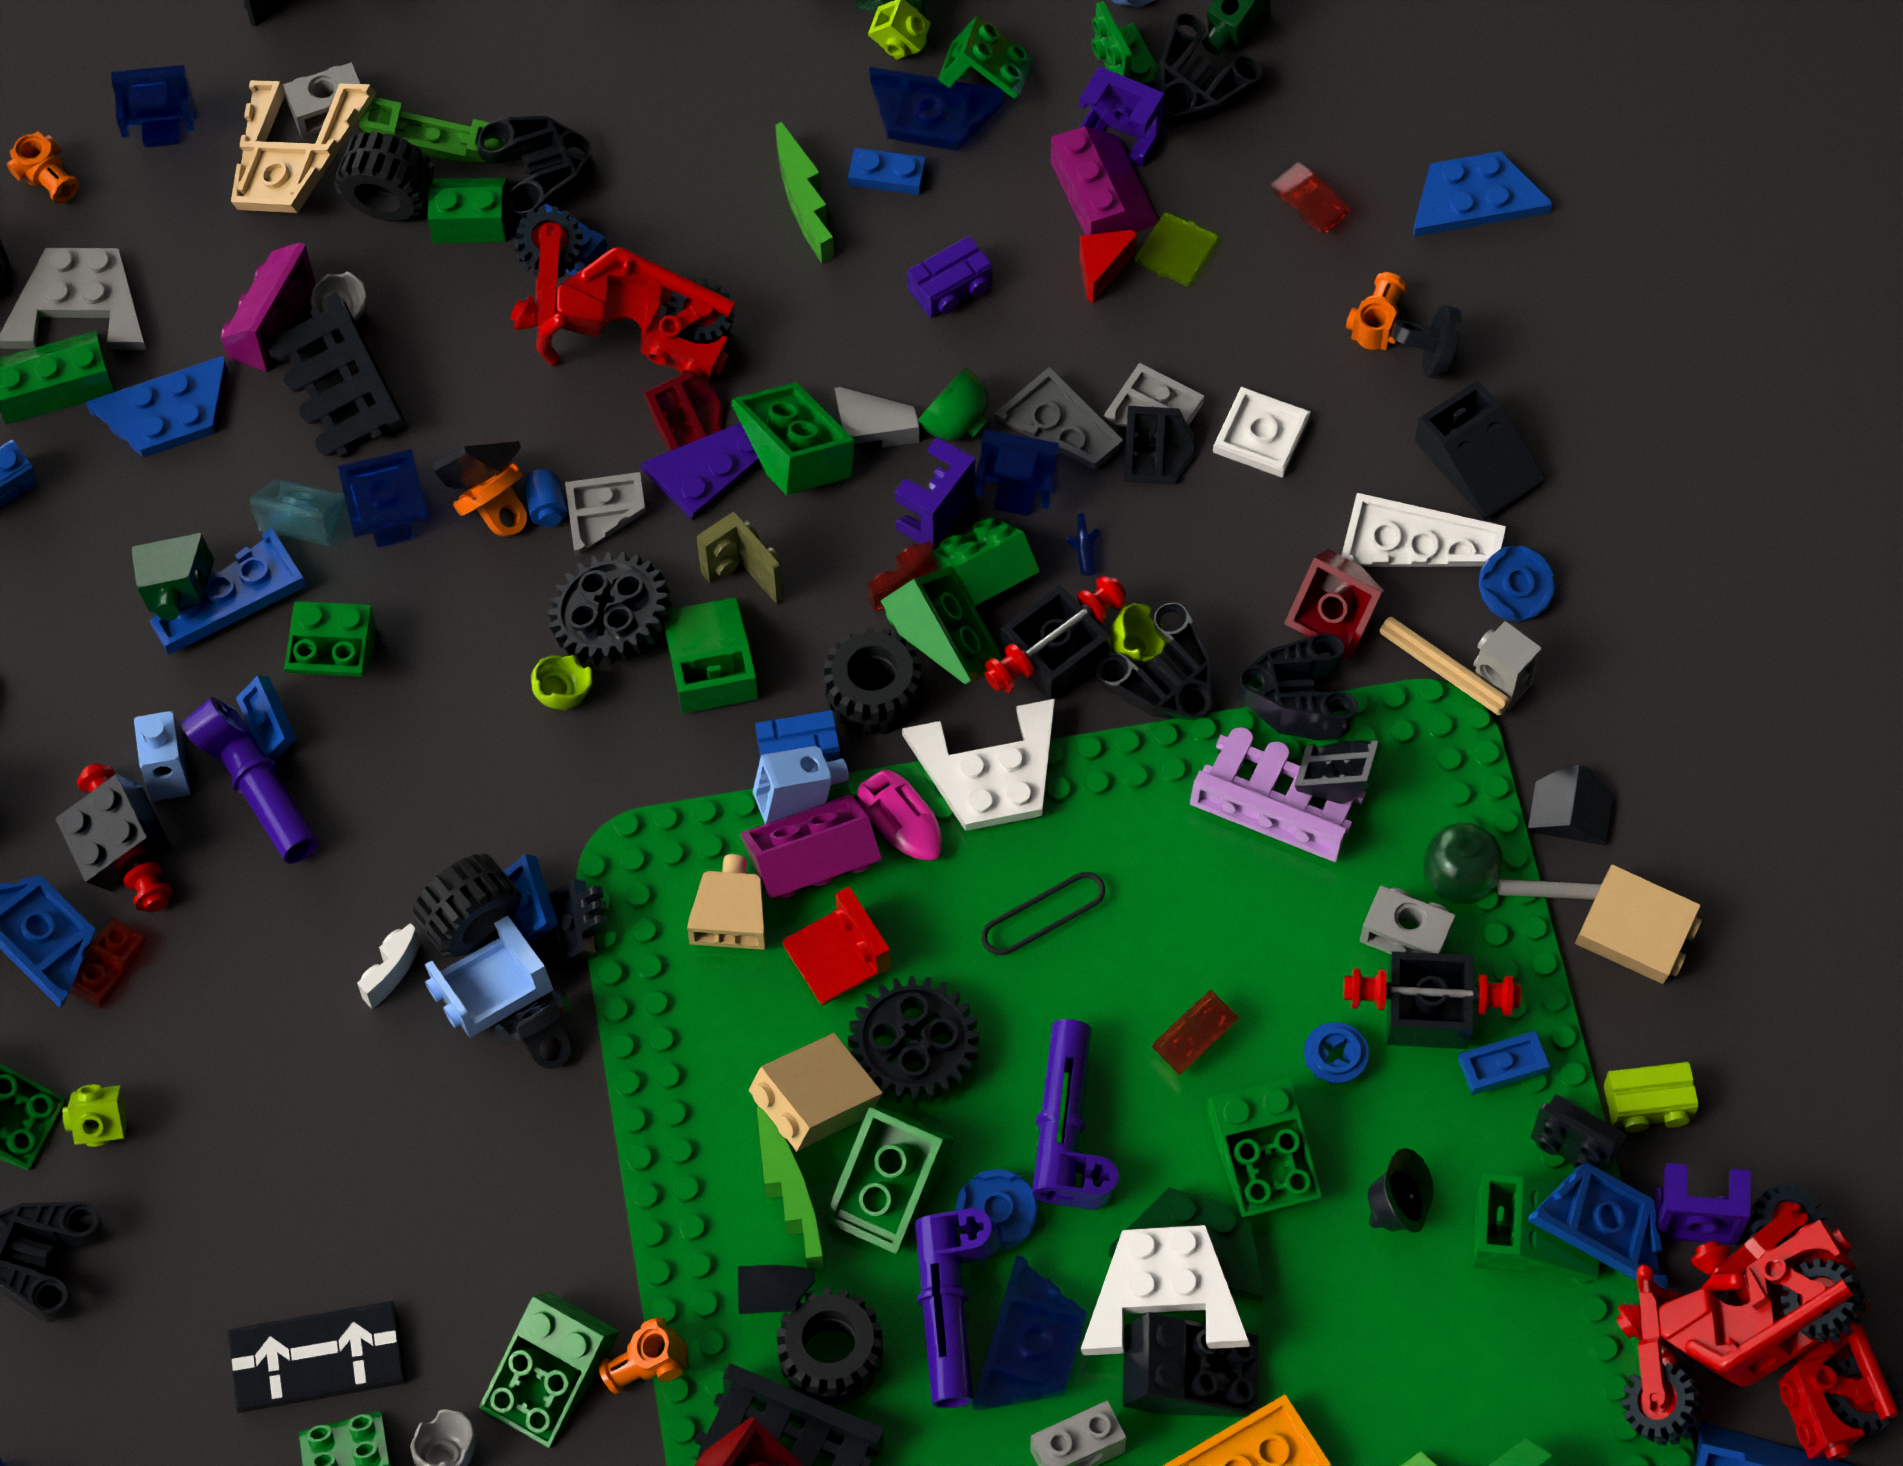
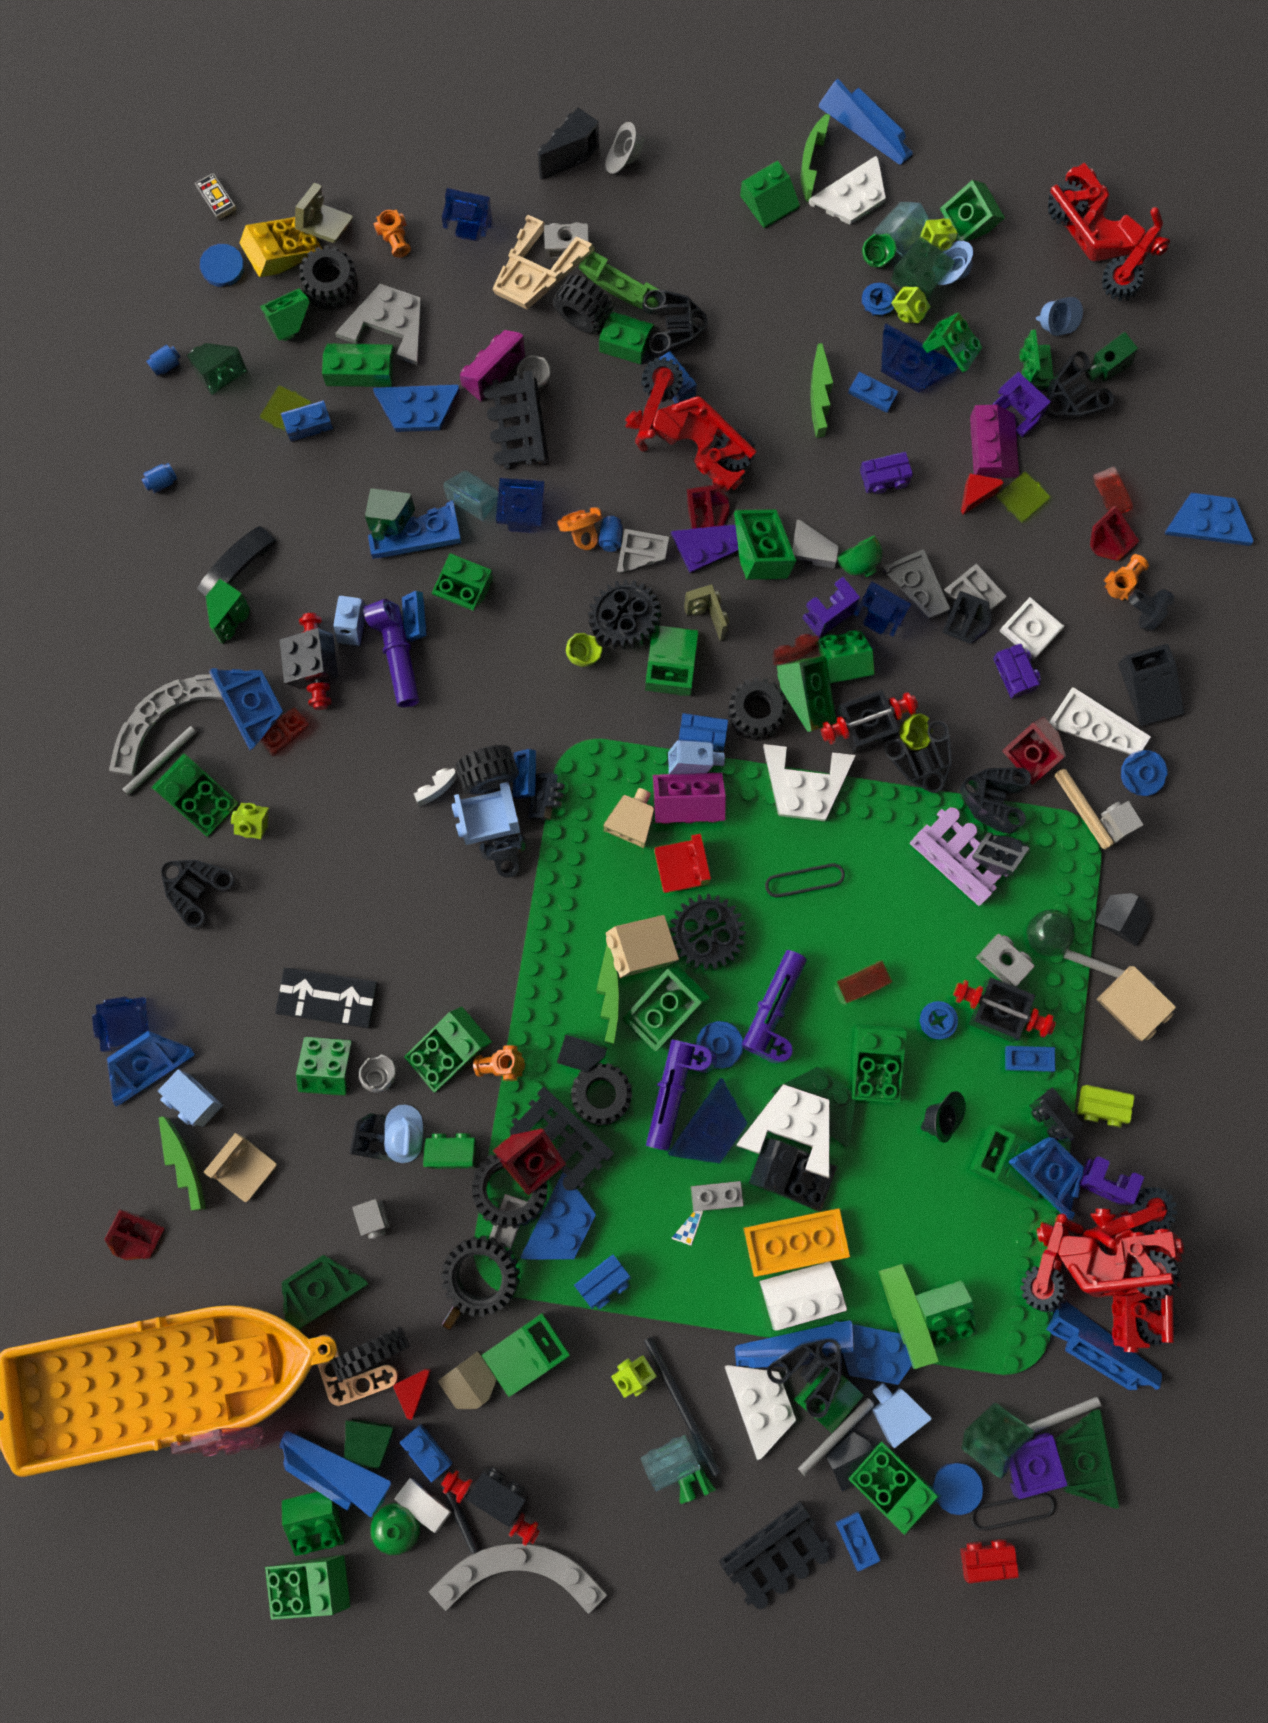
camera: 15 degrees right, 15 degrees up
(474, 463) = (578, 502): black slope -> none
(832, 35) = (872, 292): none -> blue gear
(901, 815) = (745, 795): dark pink piece -> none
(1084, 546) = (905, 665): clear blue bar -> none
(1262, 498) = (1017, 670): none -> dark purple brick
(1334, 260) = (1112, 536): none -> dark red slope

